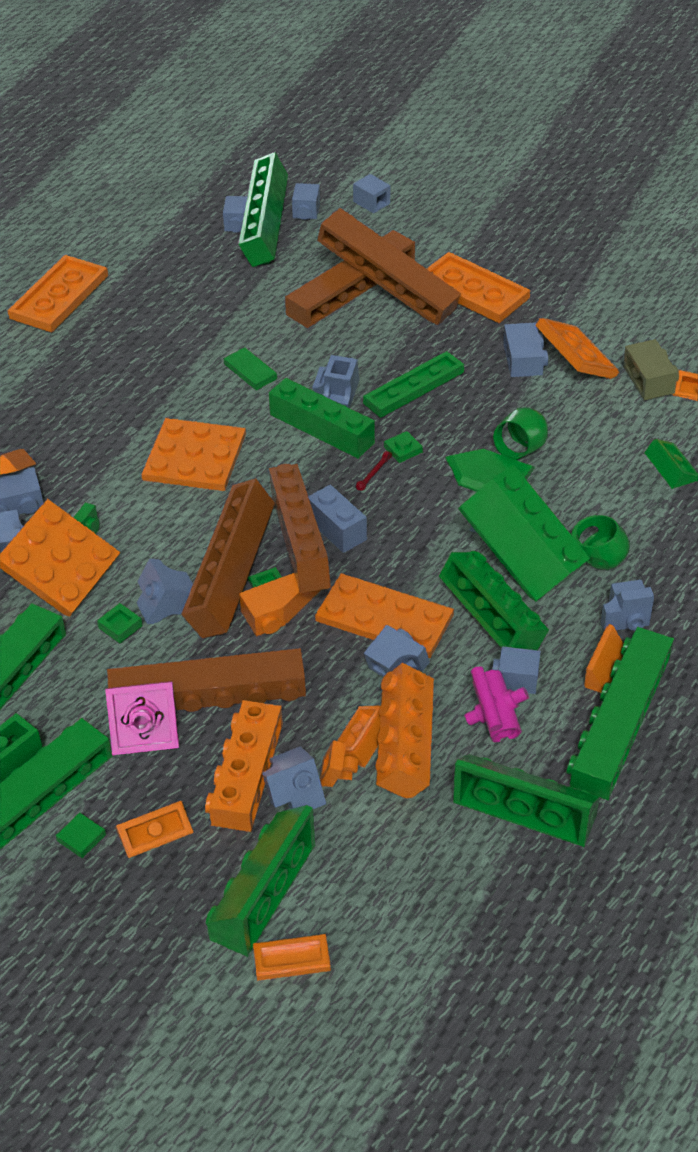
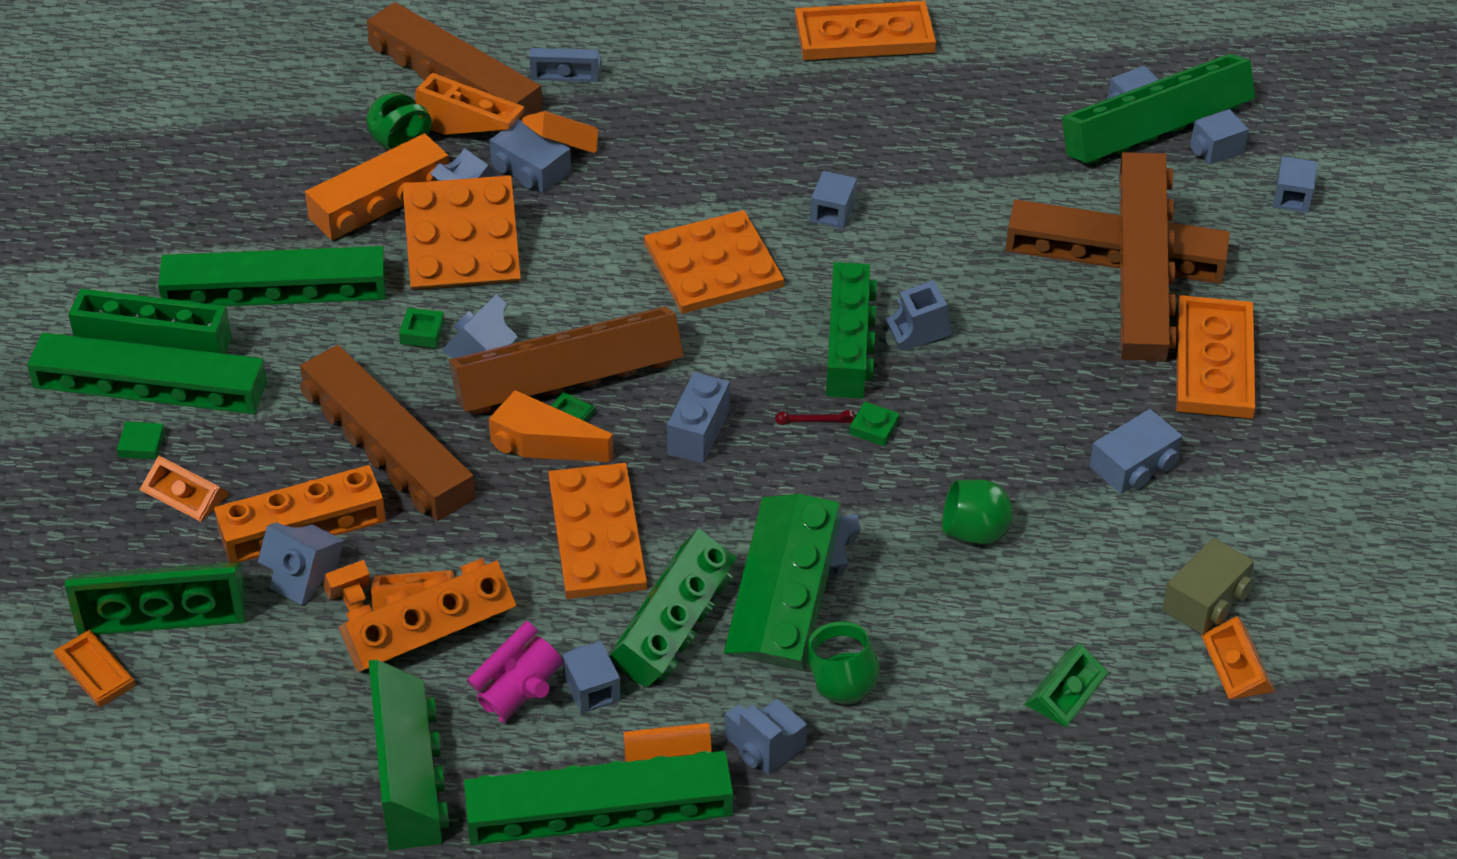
camera: 55 degrees right, 0 degrees up
(88, 517) = (534, 229): green plate -> none
(142, 718) = (290, 401): plate -> none
(200, 373) = (833, 199): none -> sand blue brick
(250, 368) = (887, 237): green tile -> none
(299, 528) = (636, 387): dark orange brick -> none
(392, 649) = (526, 556): sand blue brick -> none
(413, 384) = (986, 383): green plate -> none
(479, 466) = (900, 521): green tile -> none
(577, 348) = (1181, 499): orange tile -> none

